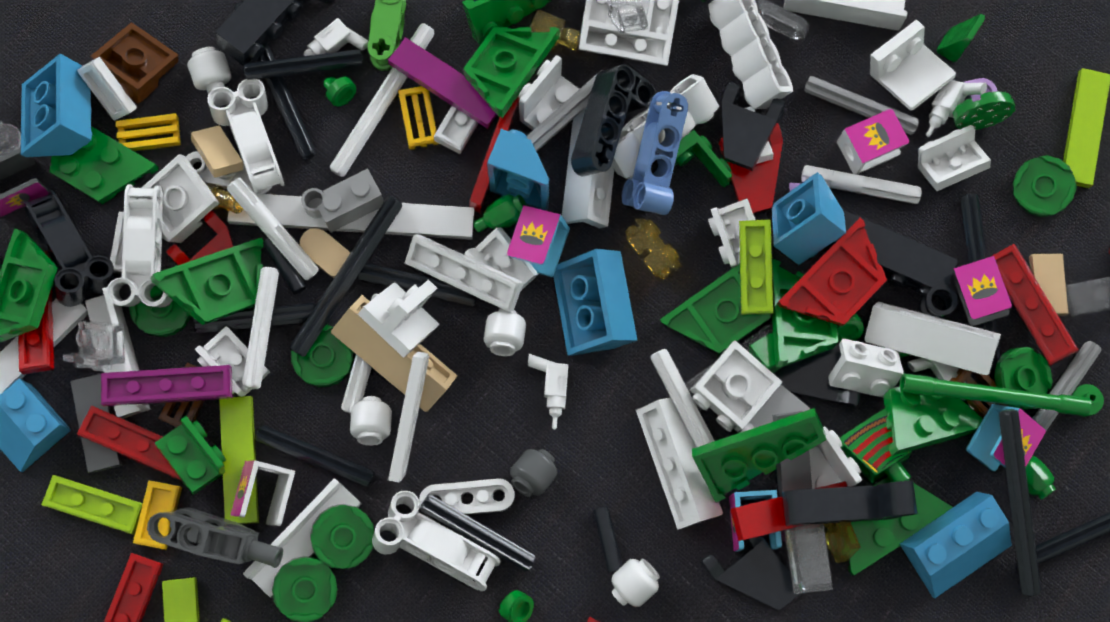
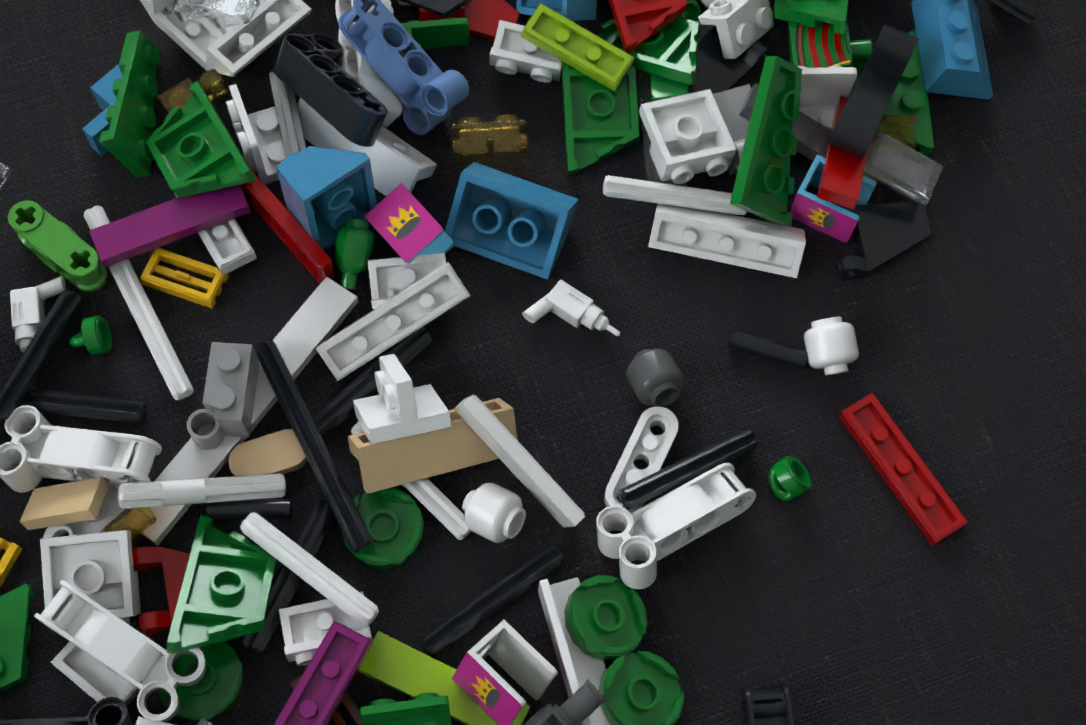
camera: 60 degrees left, 10 degrees down
(504, 332) = (484, 320): white head -> none

